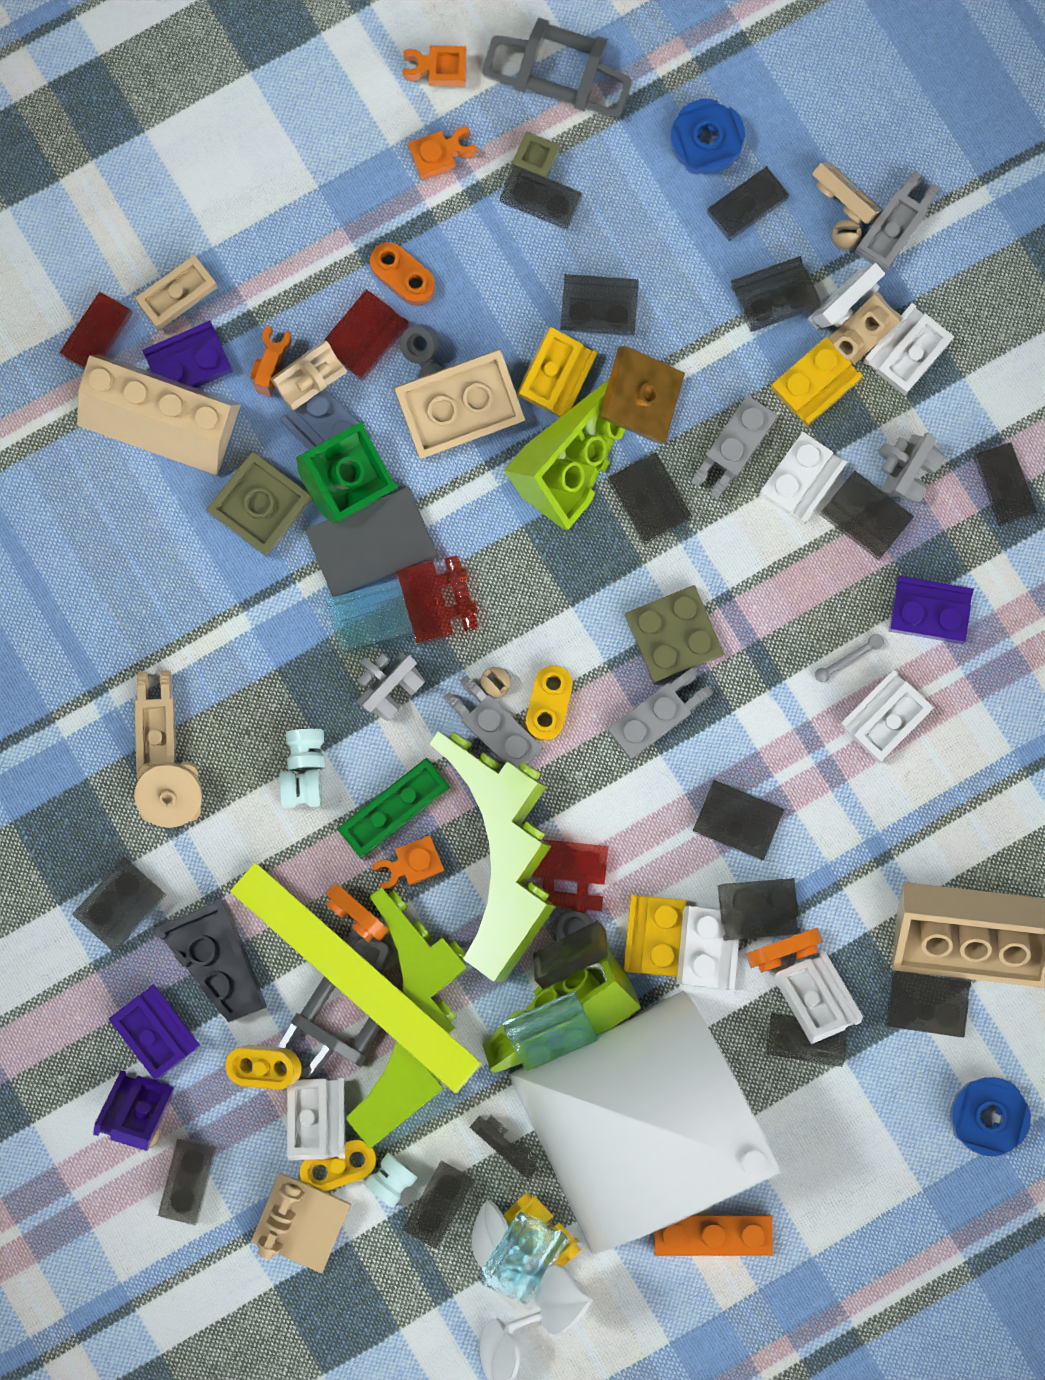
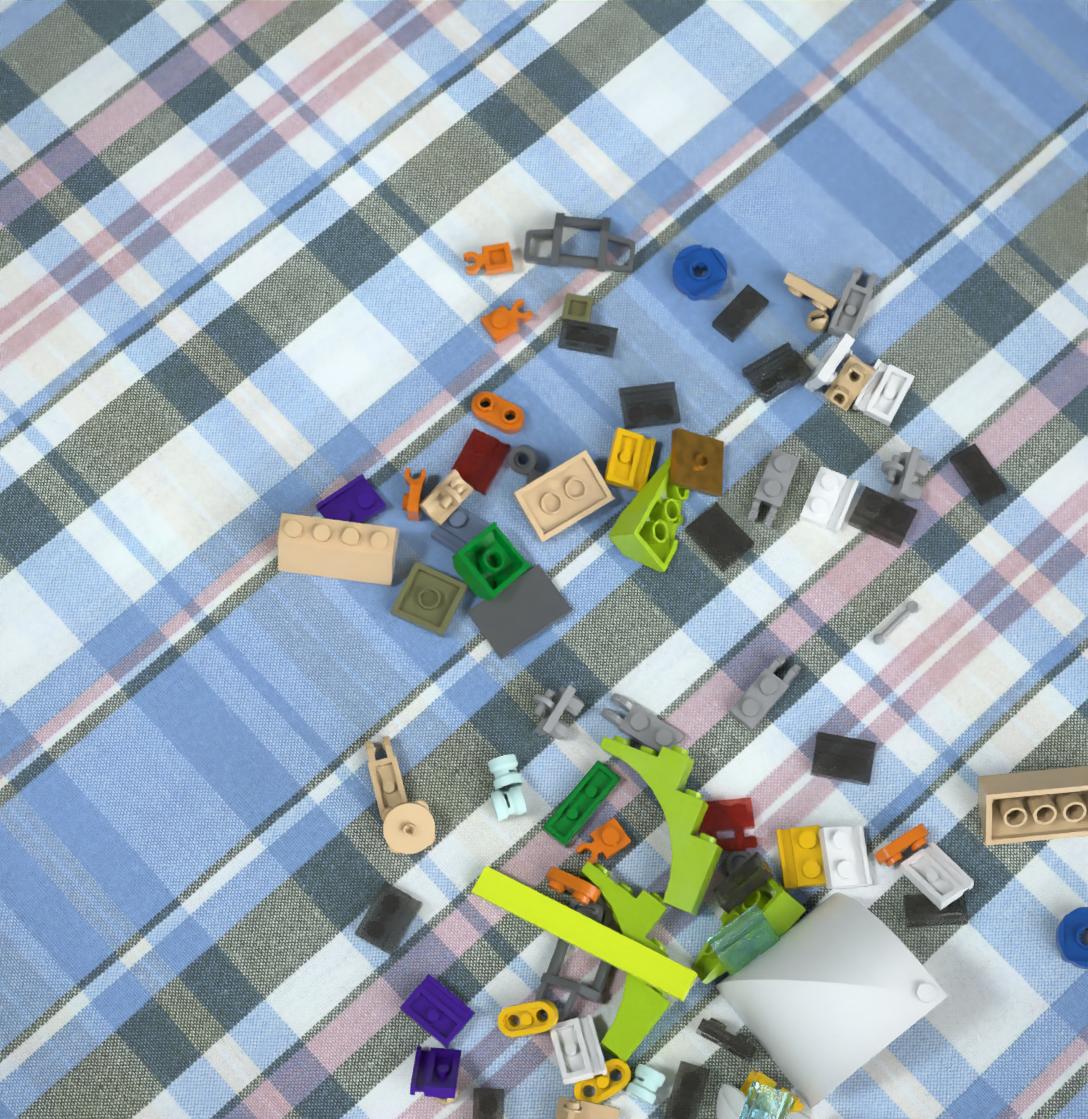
camera: 15 degrees left, 10 degrees down
(96, 330) = (277, 499): clear red plate -> none
(176, 292) = (332, 458): tan plate -> none
(216, 958) = (470, 942): black wing -> none
(369, 616) = (531, 665): clear light blue plate -> none
(426, 603) = (571, 646): clear red plate -> none
(488, 686) = (633, 697): tan hinge -> none
(549, 702) = (680, 700): yellow plate -> none
(674, 634) = (761, 632): olive plate -> none
(716, 1236) = (901, 1074): orange plate -> none
(758, 909) = (875, 819): clear smoke plate -> none
(816, 382) = (821, 429): yellow plate -> none
(886, 716) = (934, 658): white plate -> none
(928, 1004) = (1018, 865): clear smoke plate -> none
(931, 610) = (947, 575): dark purple plate -> none

